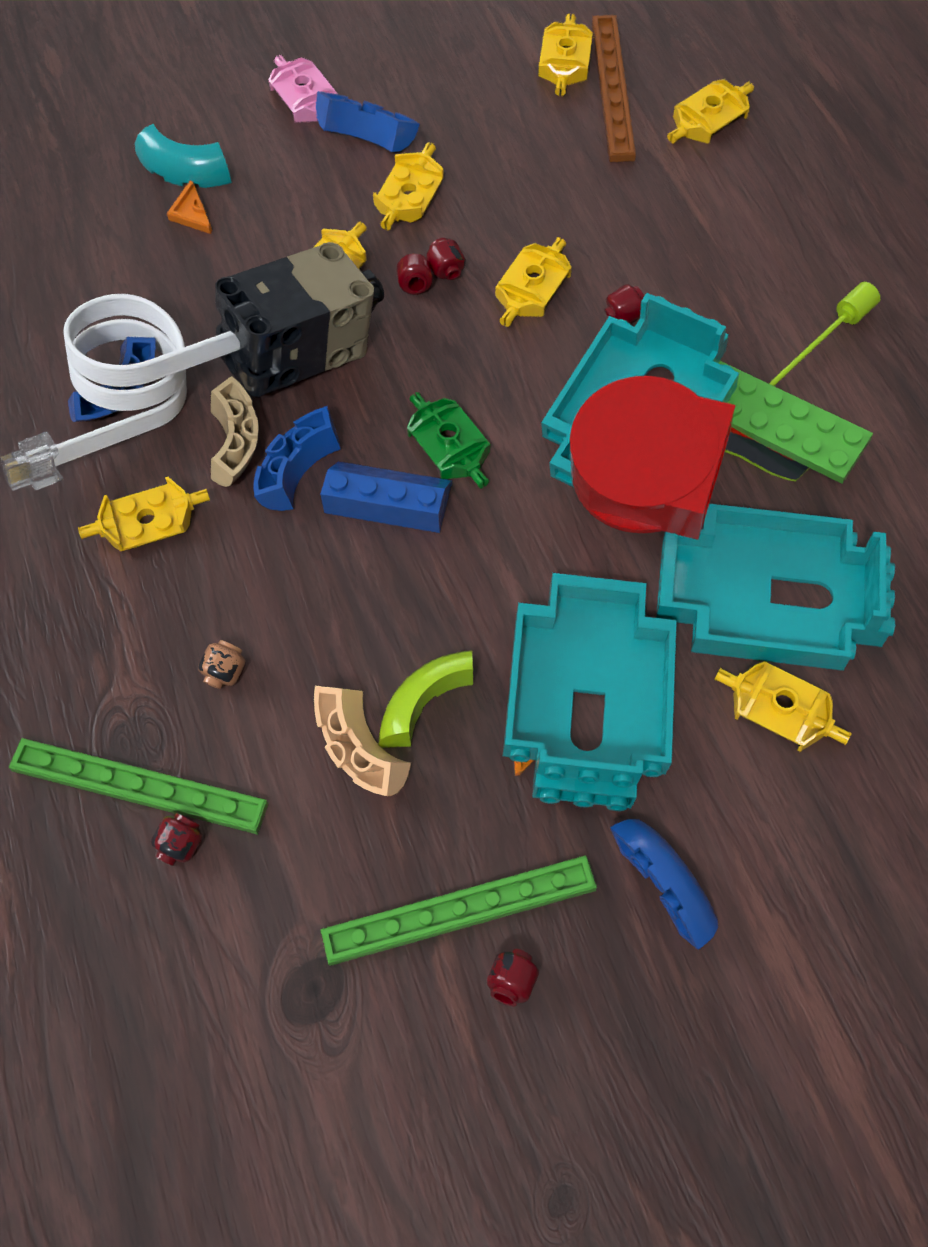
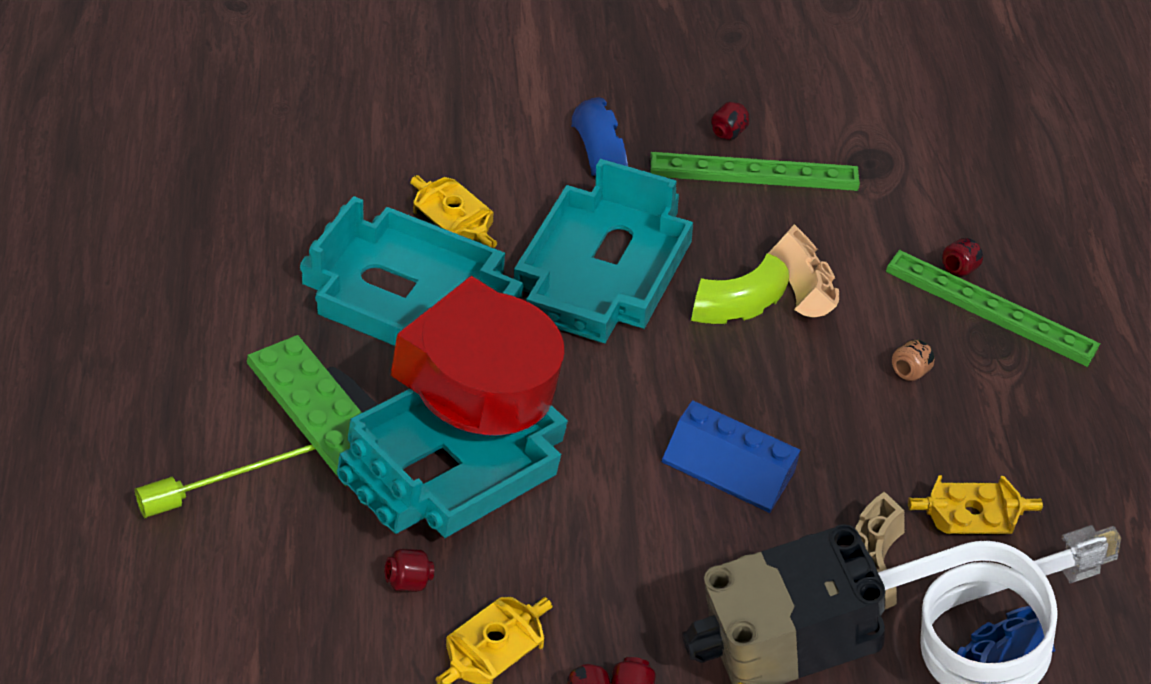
camera: 170 degrees left, 15 degrees down
(292, 456) = (839, 496): blue brick -> none
(455, 455) = (654, 513): green plate -> none

